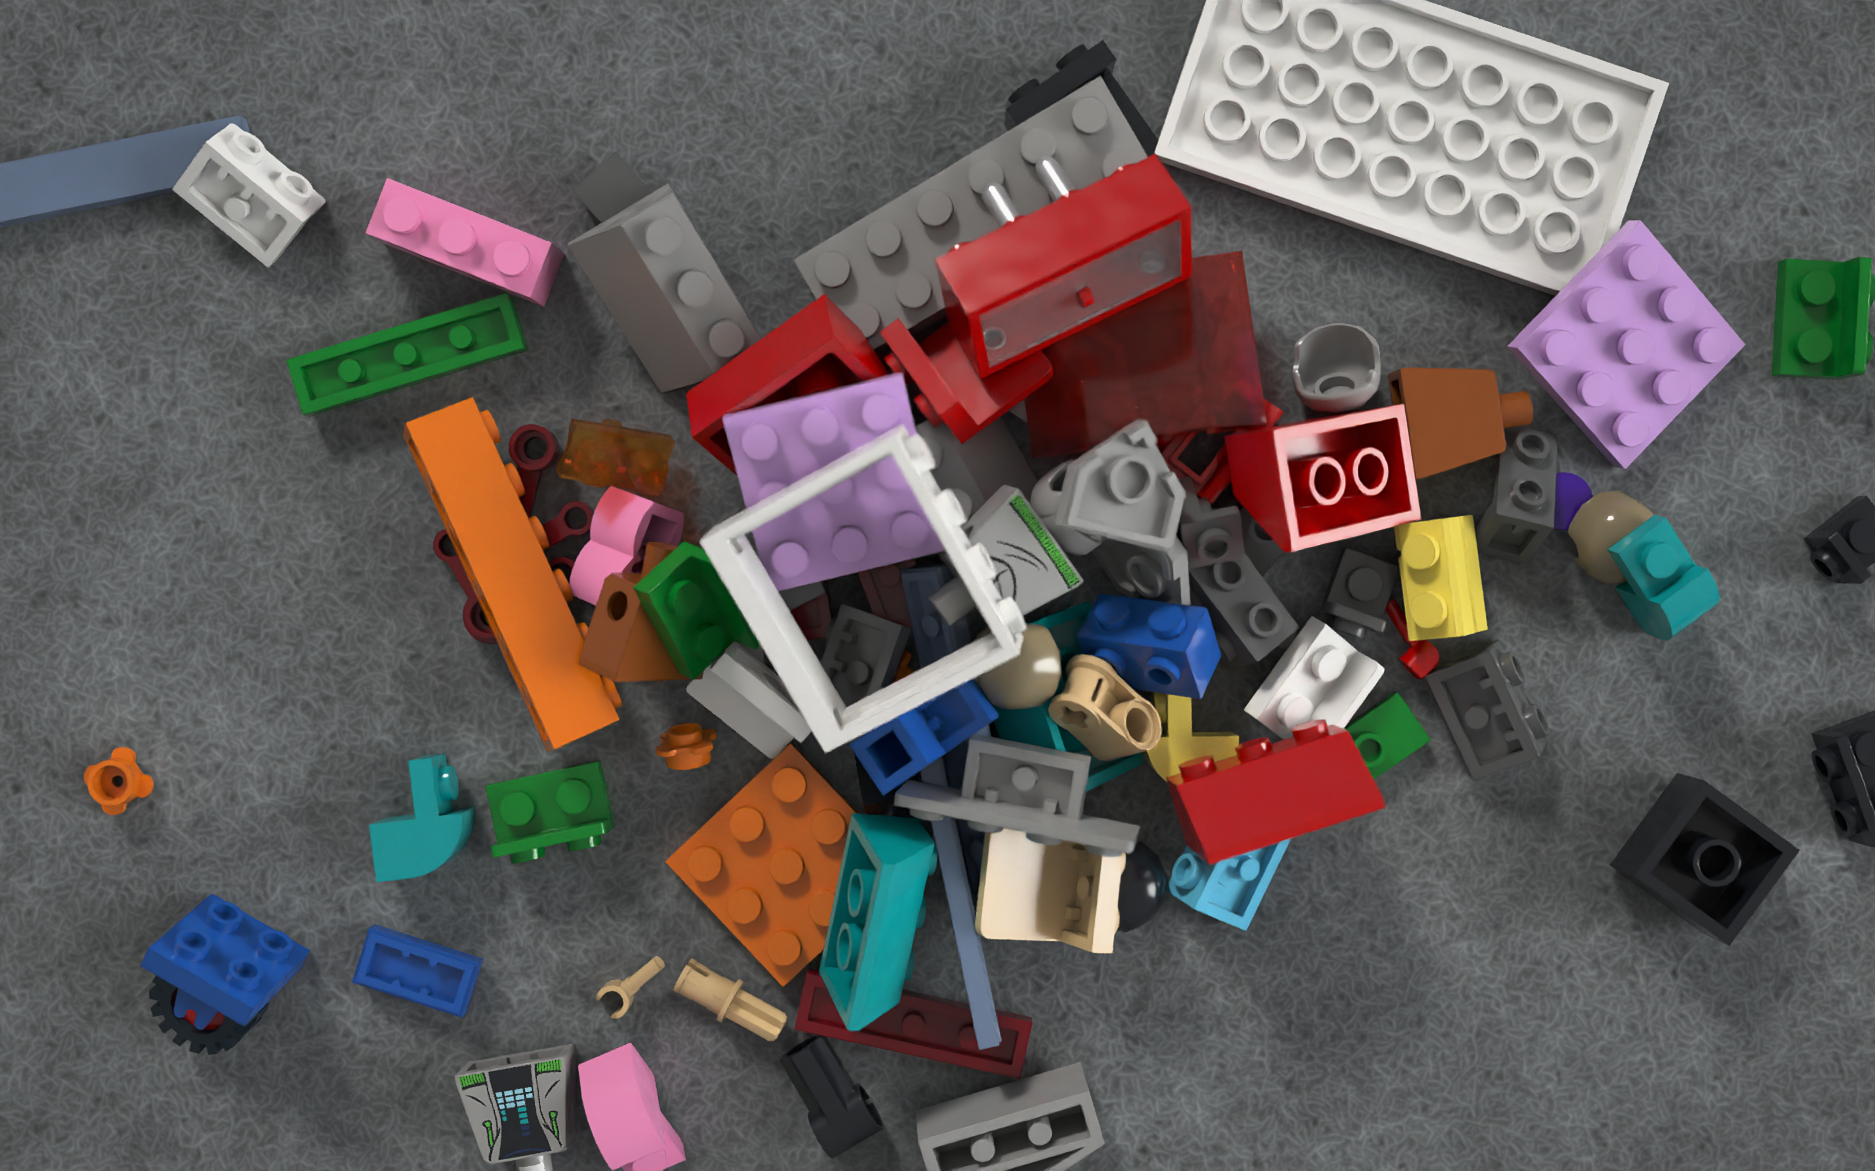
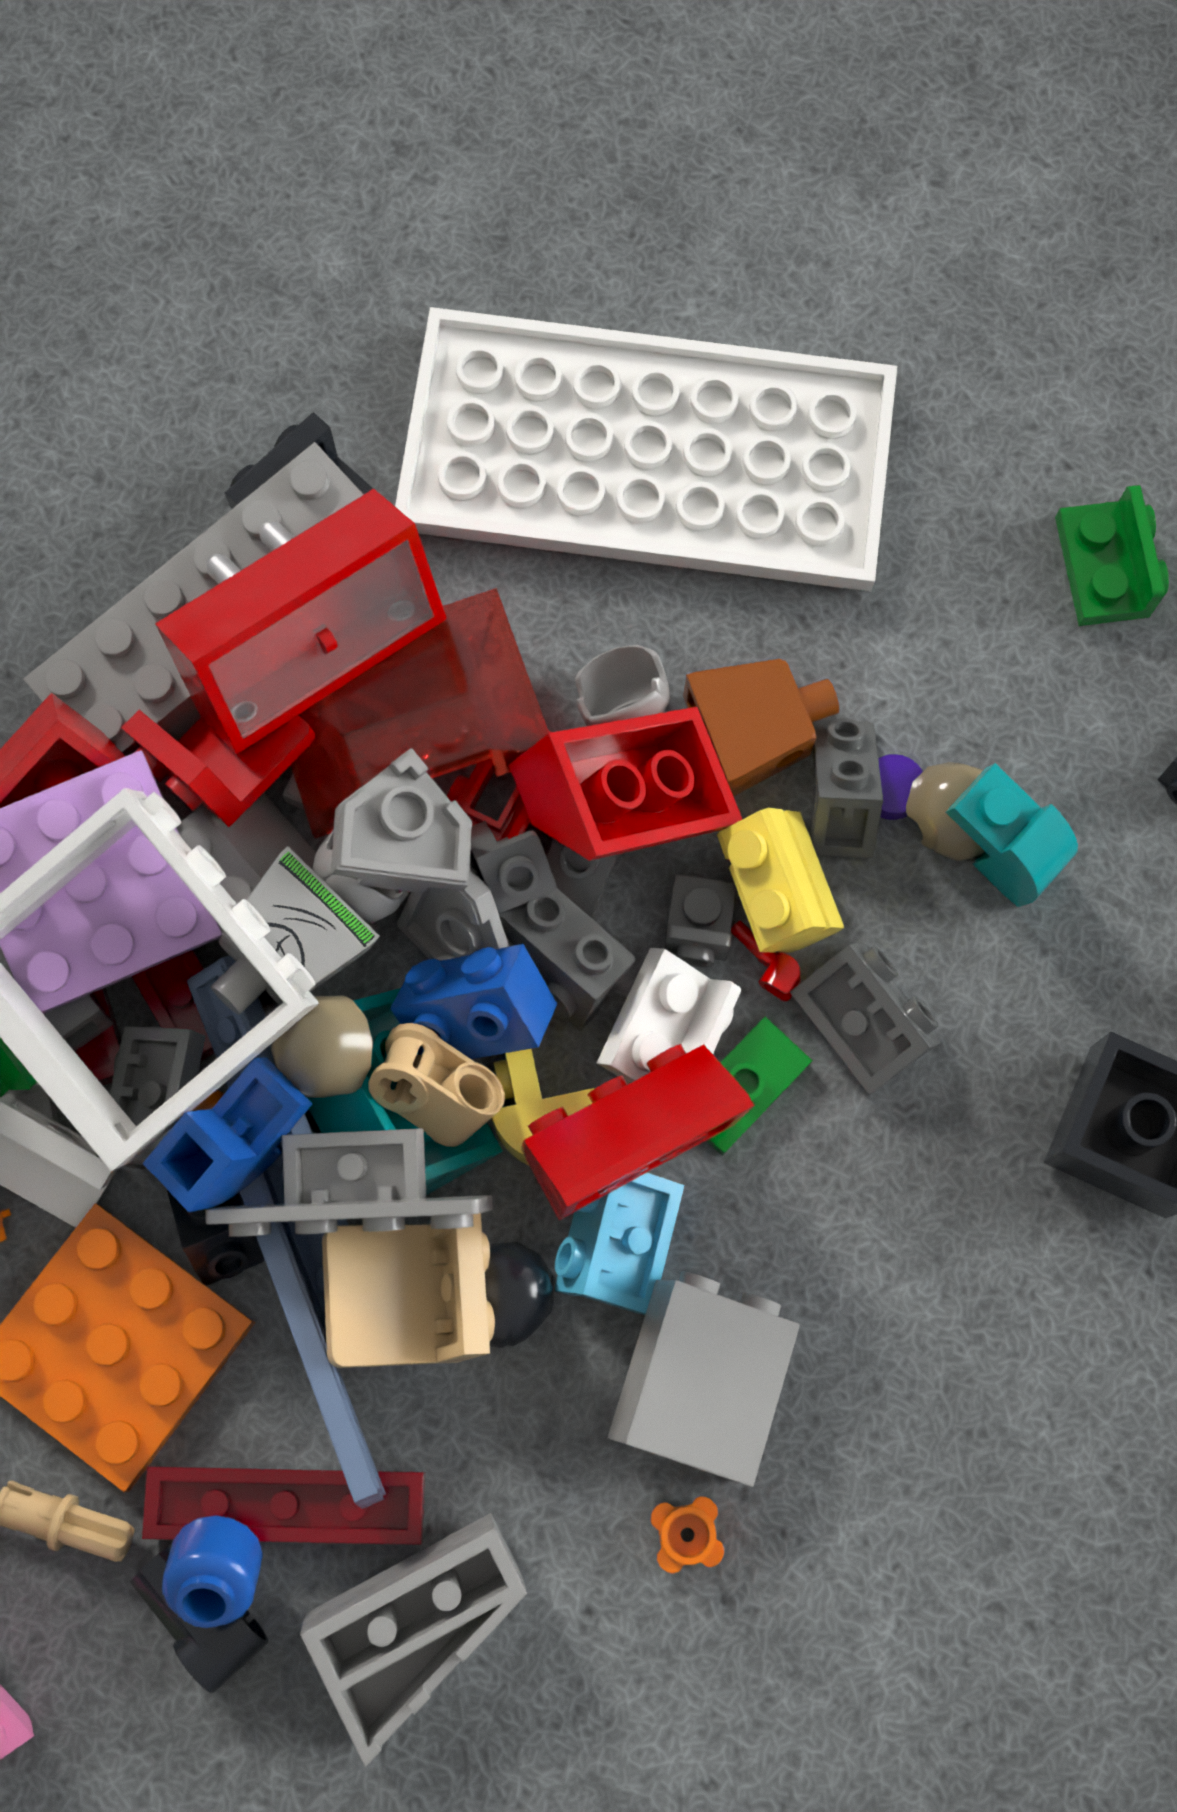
camera: 10 degrees left, 15 degrees down
(852, 1075) = (212, 1571): none -> blue head
(876, 915) = (216, 1372): teal slope -> none
(1248, 1123) = (703, 1547): none -> orange plate
(1281, 995) = (705, 1378): none -> light grey brick
(1626, 344) = (918, 616): lavender plate -> none

